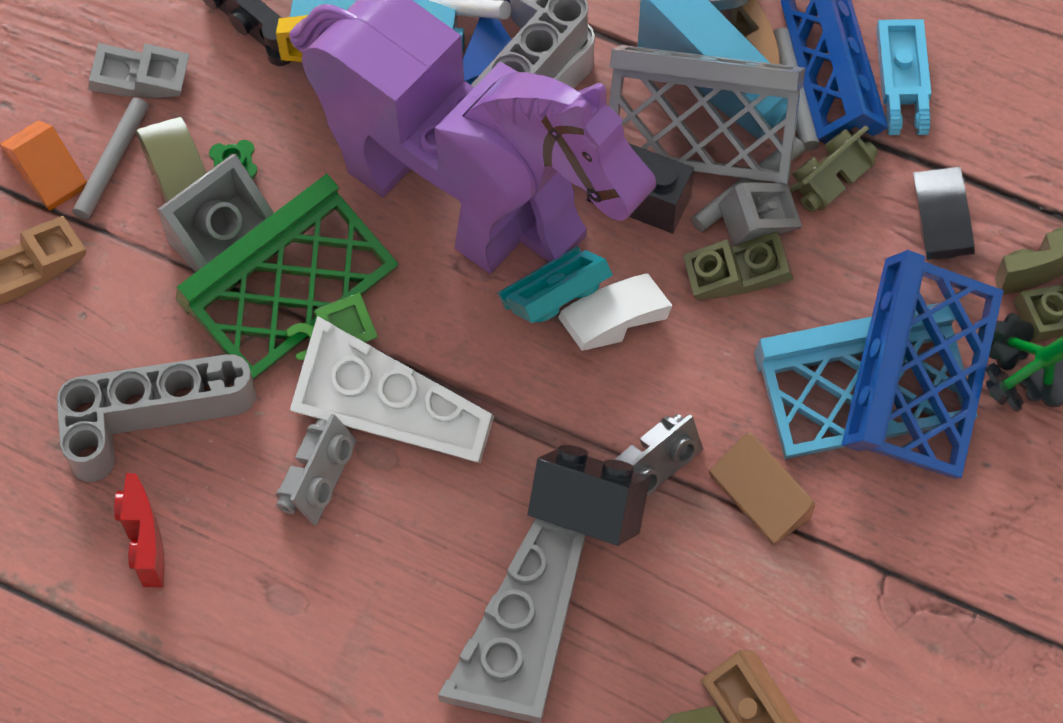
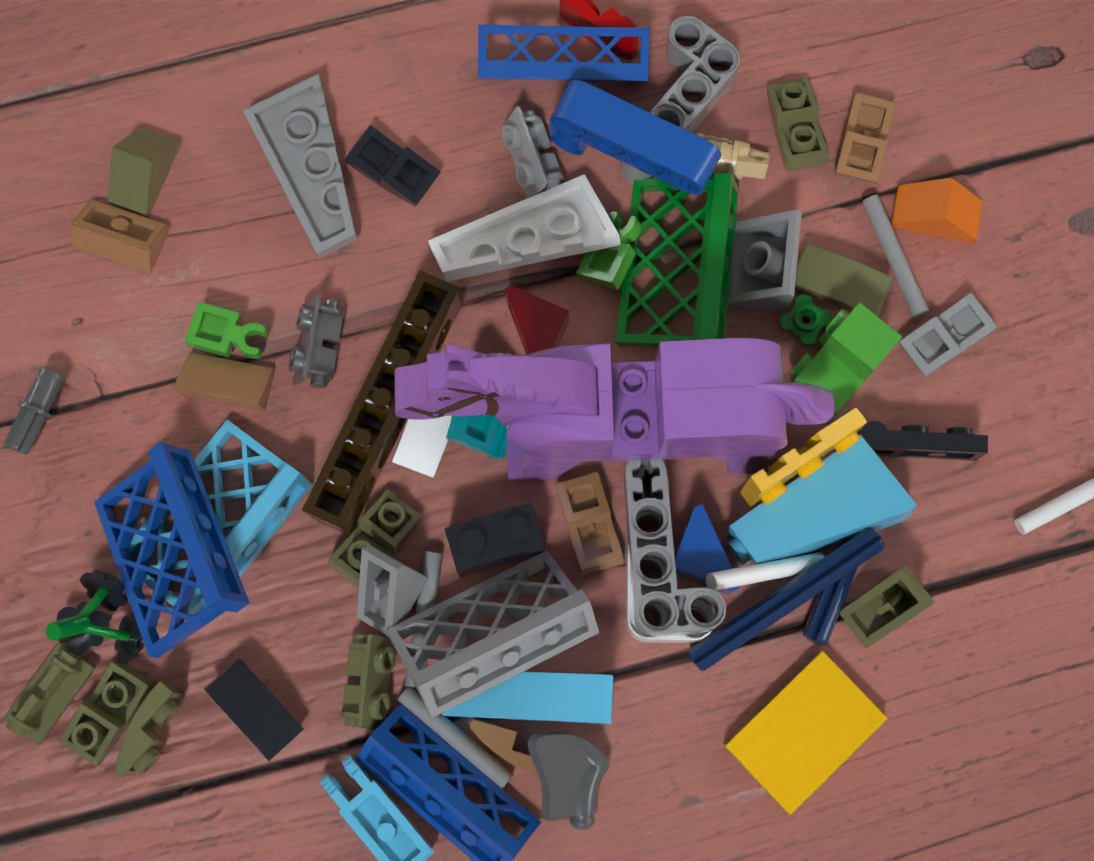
camera: 140 degrees right, 15 degrees up
(75, 314) = (797, 125): none -> olive slope
(158, 328) = (739, 158): none -> tan hinge
(208, 515) = (563, 70): none -> blue fence
(229, 385) = (632, 136): none -> blue beam
(238, 100) = (850, 353): none -> bright green brick
(447, 562) = (392, 167): none -> black slope
(453, 314) = (536, 320): none -> dark red slope
(589, 494) = (325, 264): black brick -> none
(637, 347) = (372, 423): none -> dark brown brick
(730, 534) = (219, 330): none -> bright green plate
(959, 597) = (34, 411): none -> dark grey axle

